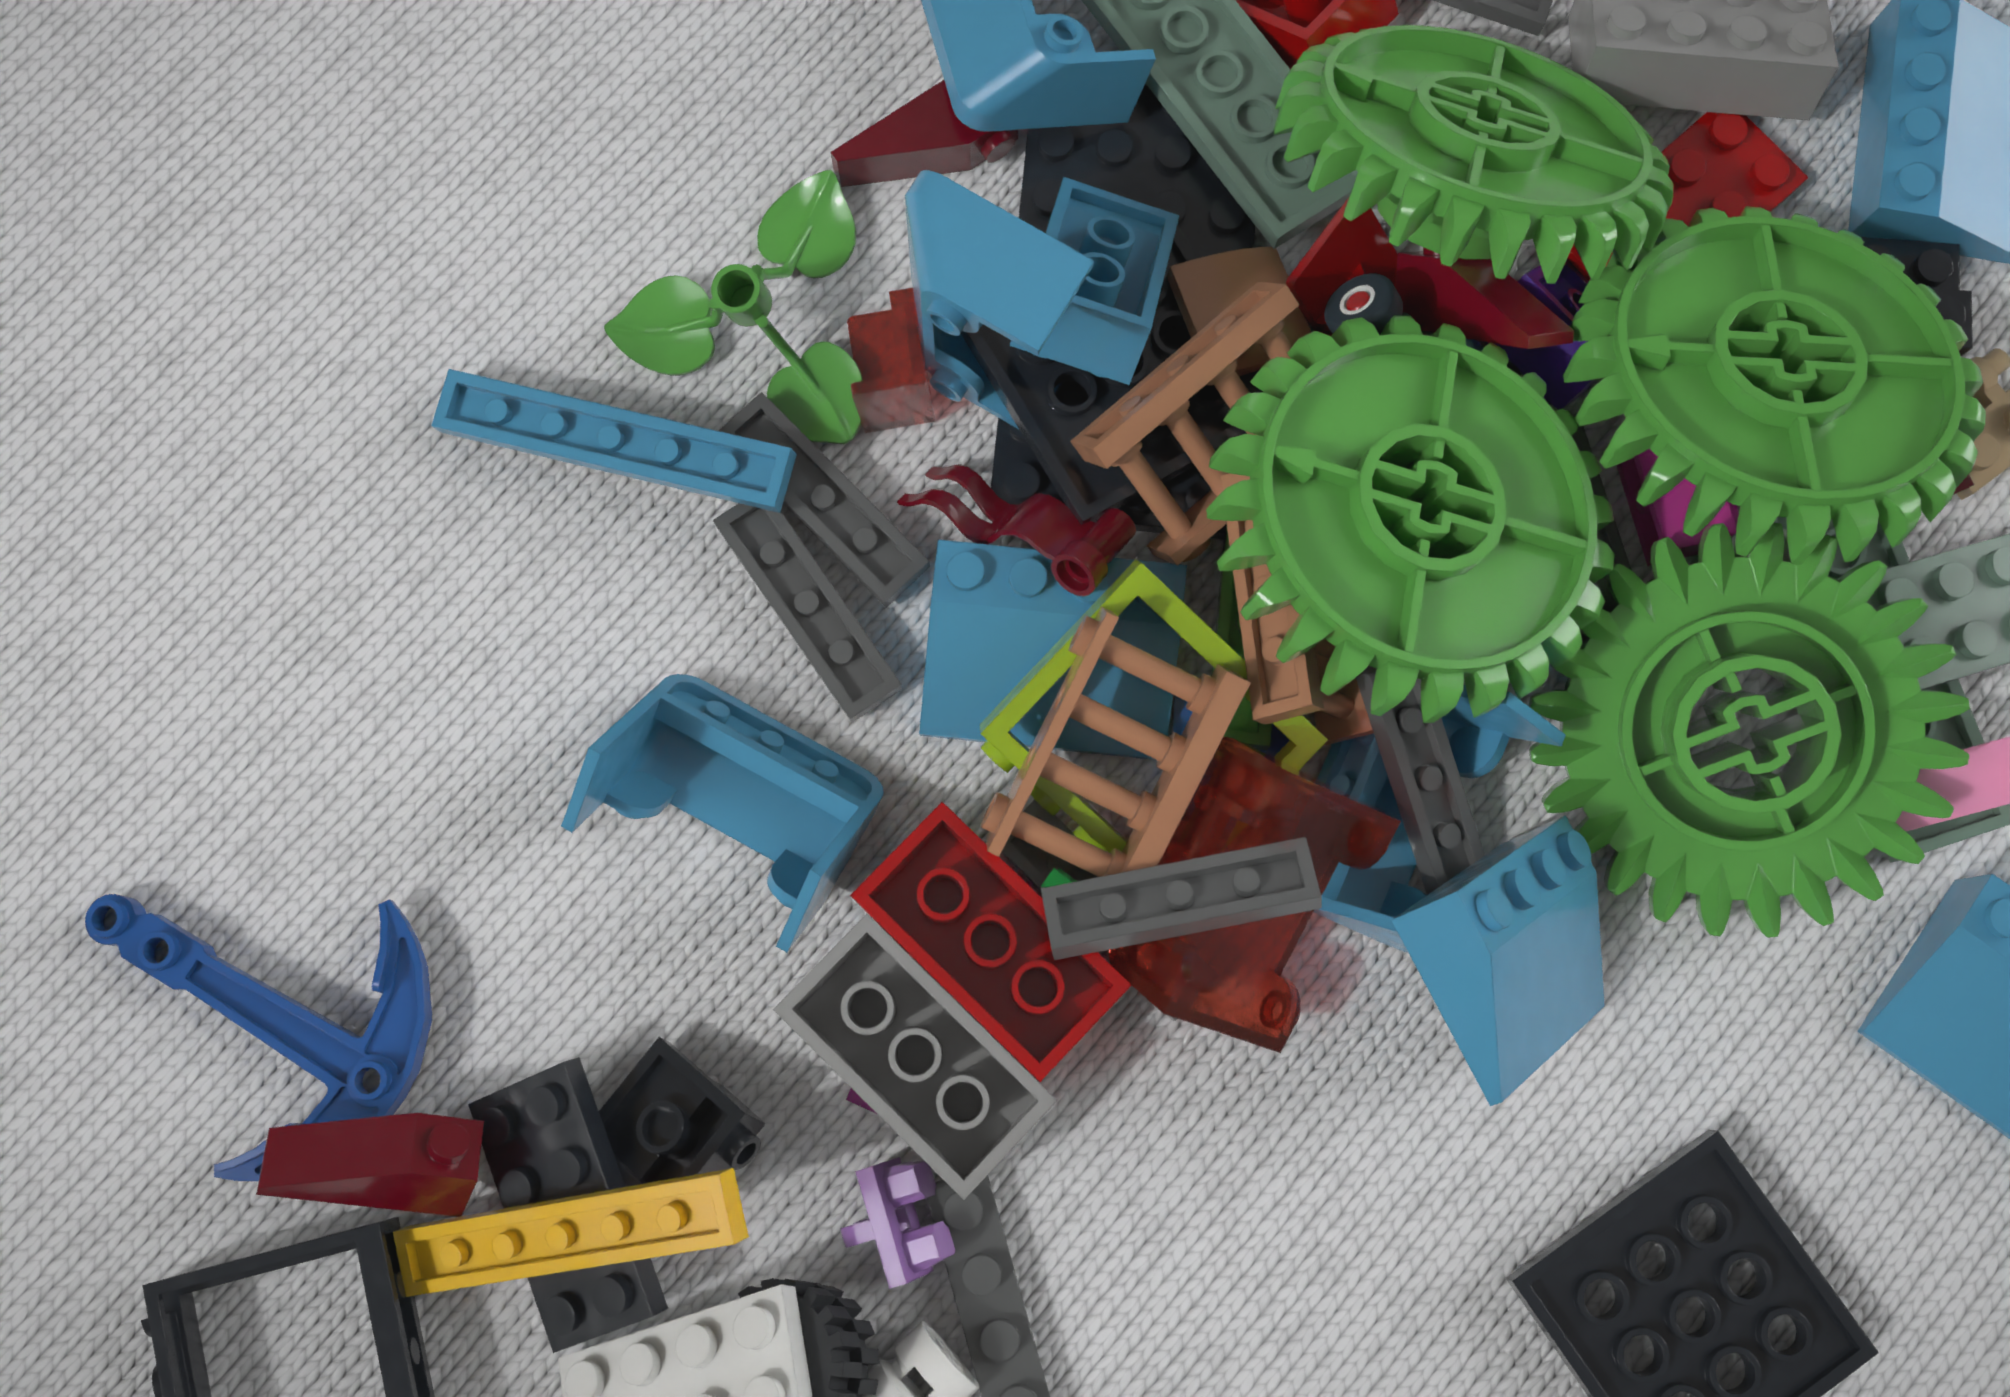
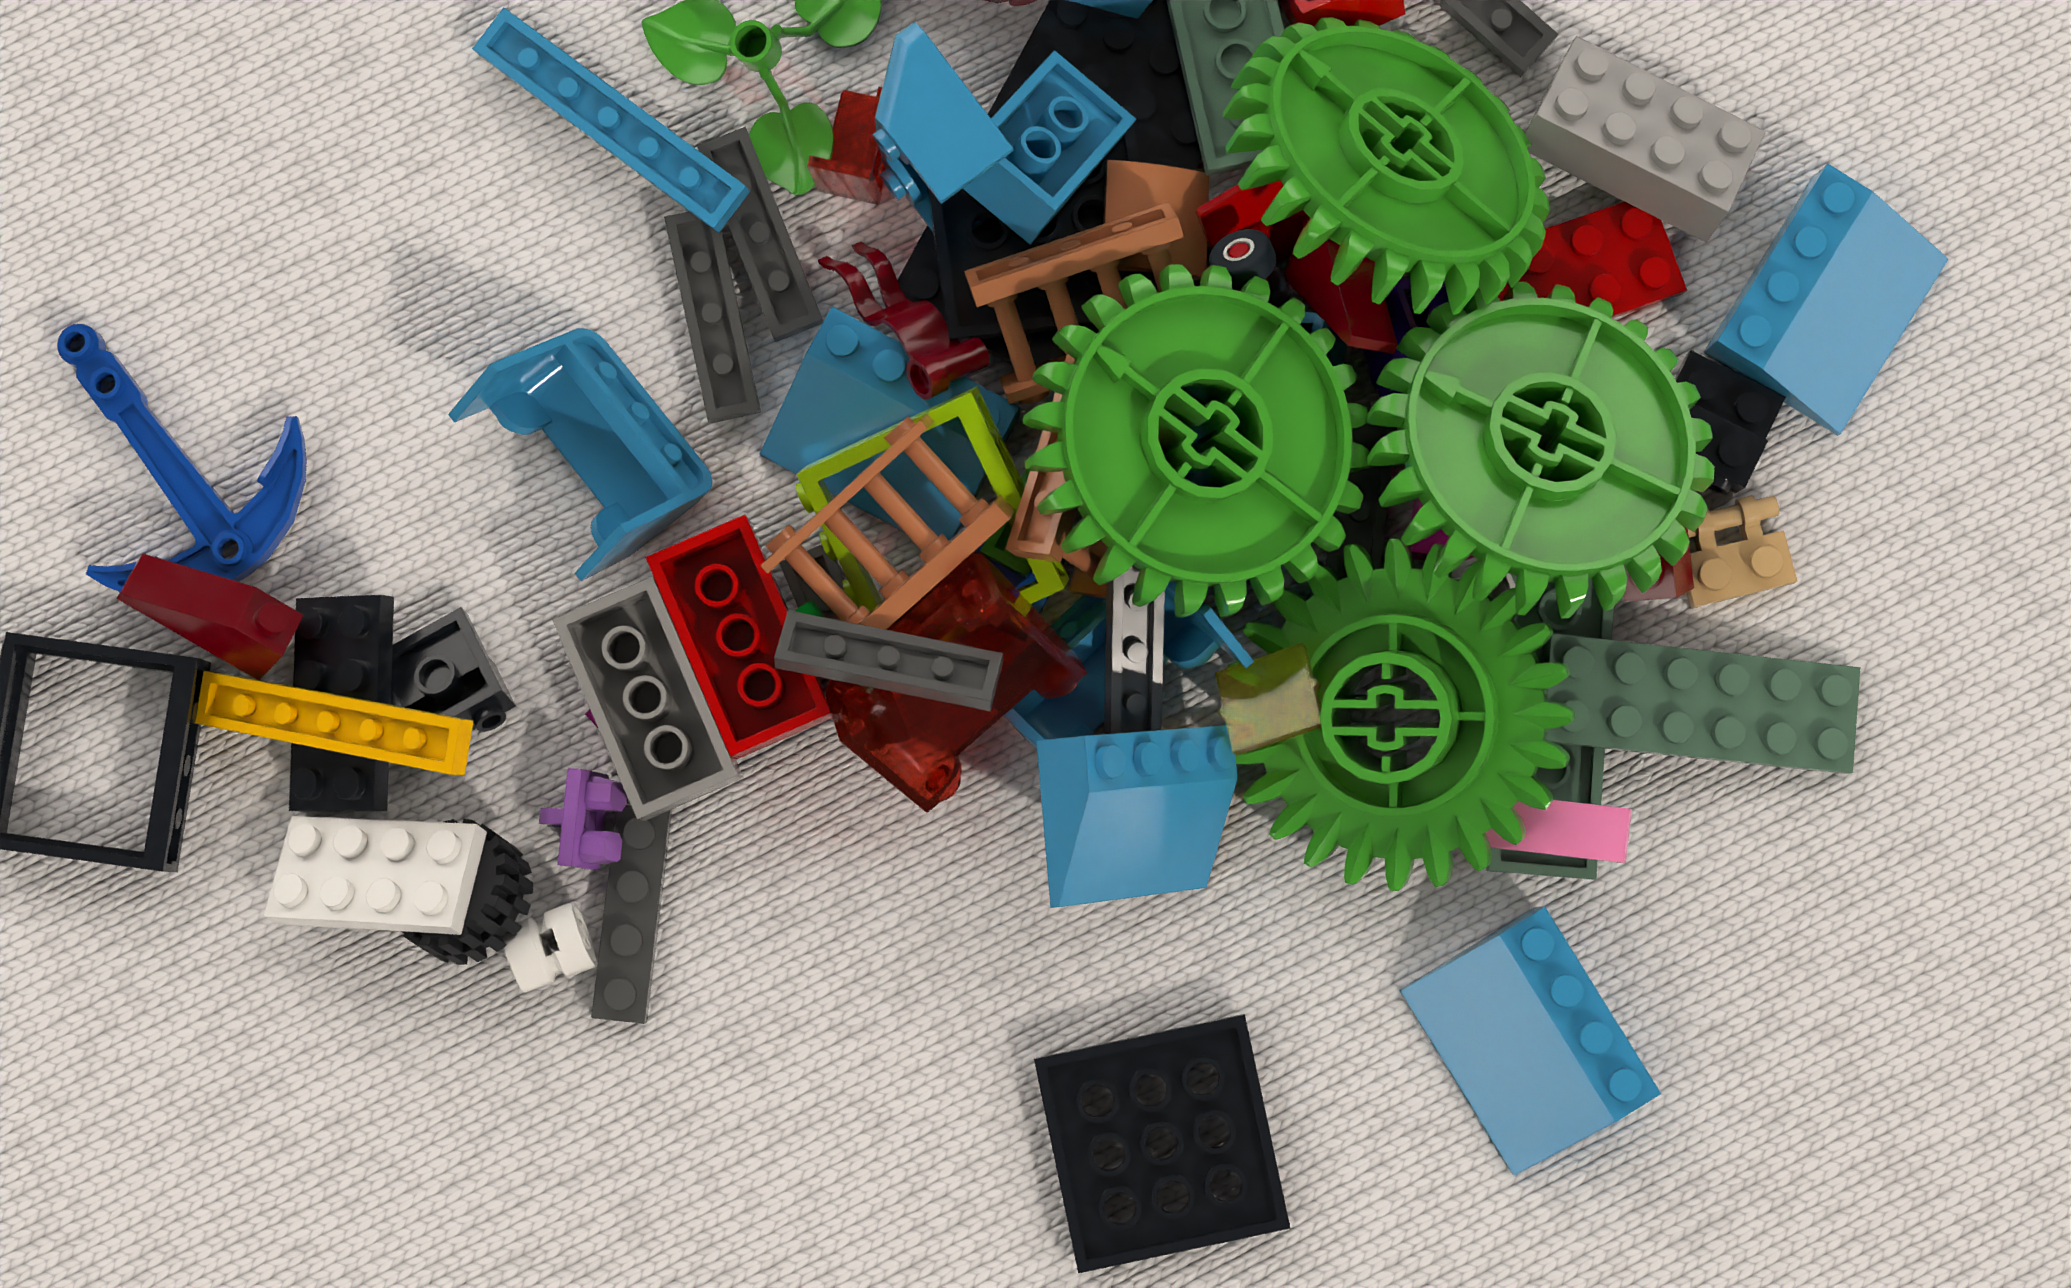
camera: 25 degrees right, 5 degrees up
(1603, 770) = (1269, 699): none -> clear yellow piece

